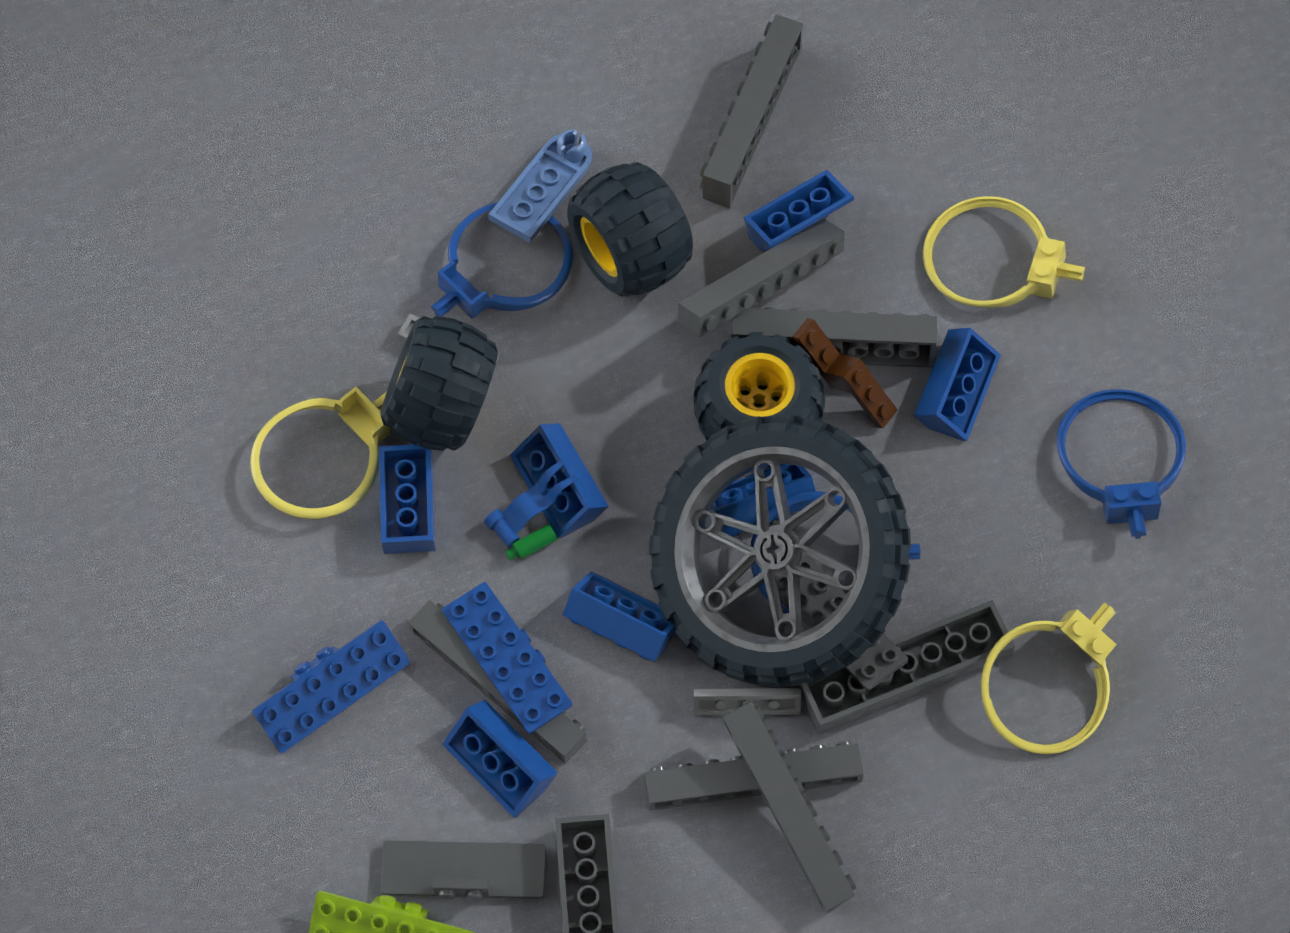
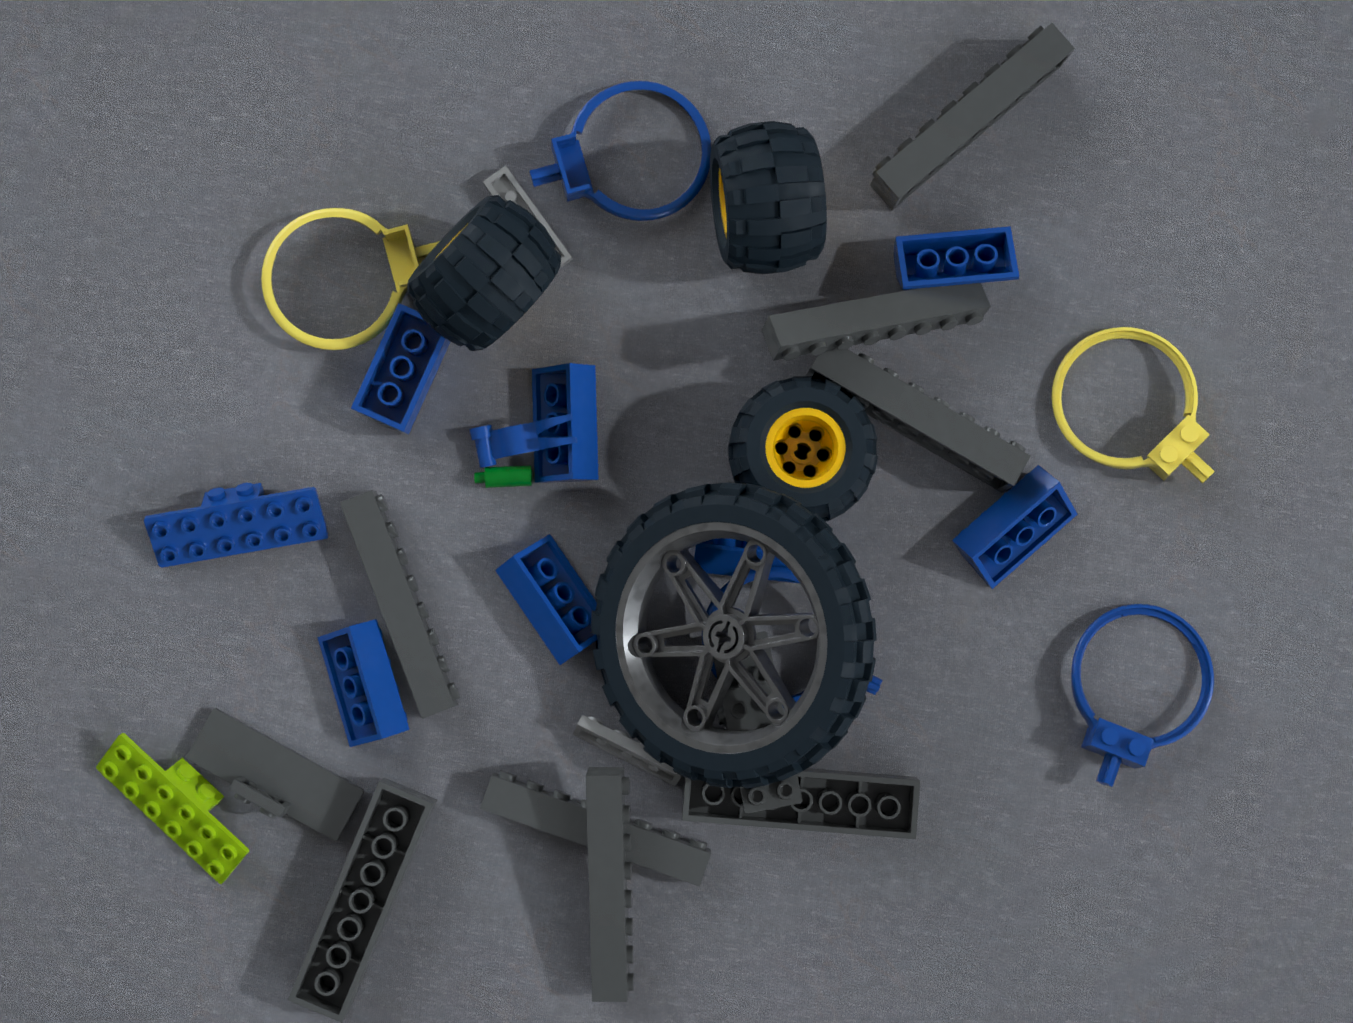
camera: 25 degrees right, 20 degrees up
(507, 657) = (417, 589): blue bracket -> none
(543, 185) = (711, 90): medium blue plate -> none
(845, 373) = (904, 465): reddish brown bracket -> none
(1090, 639) = (992, 866): light yellow brick -> none

